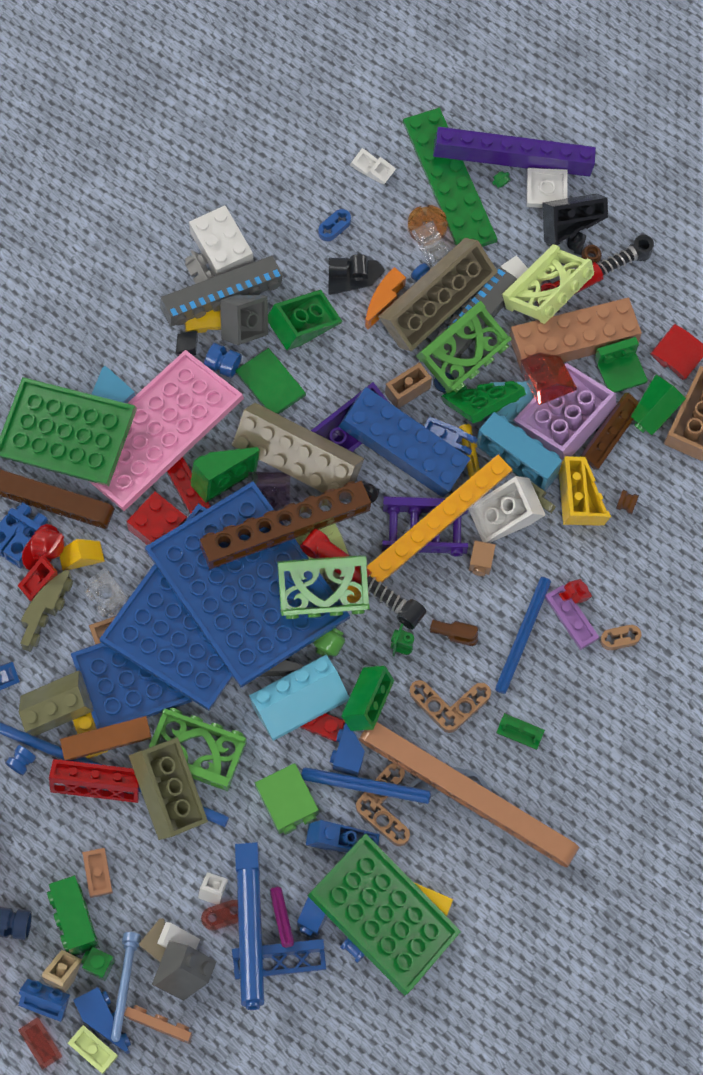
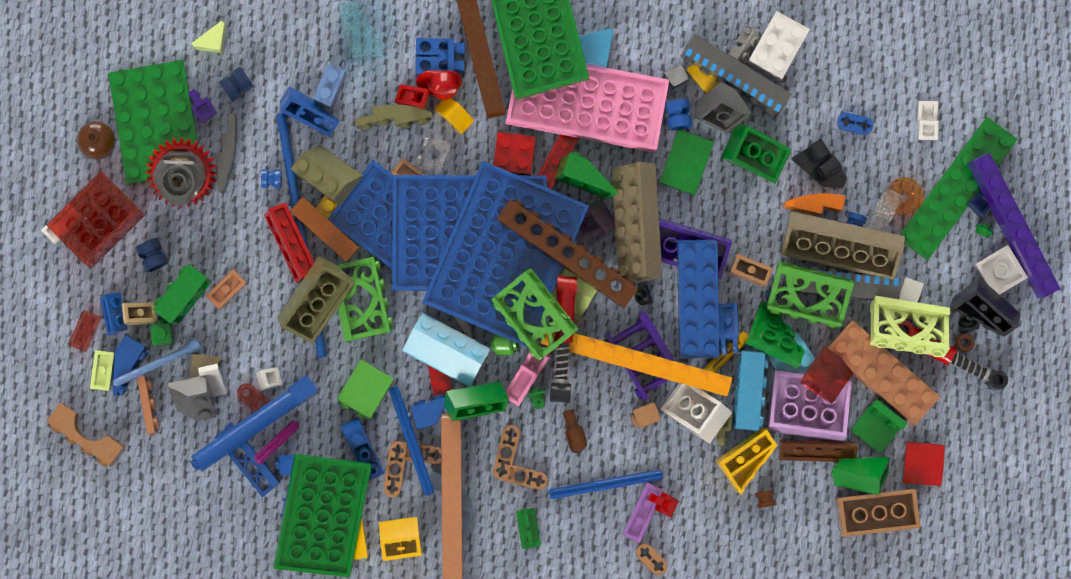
camera: 55 degrees right, 15 degrees up
(372, 640) = (525, 378): none -> bright pink slope
(455, 856) = (400, 538): none -> yellow slope
(475, 170) = (978, 204): none -> dark blue plate

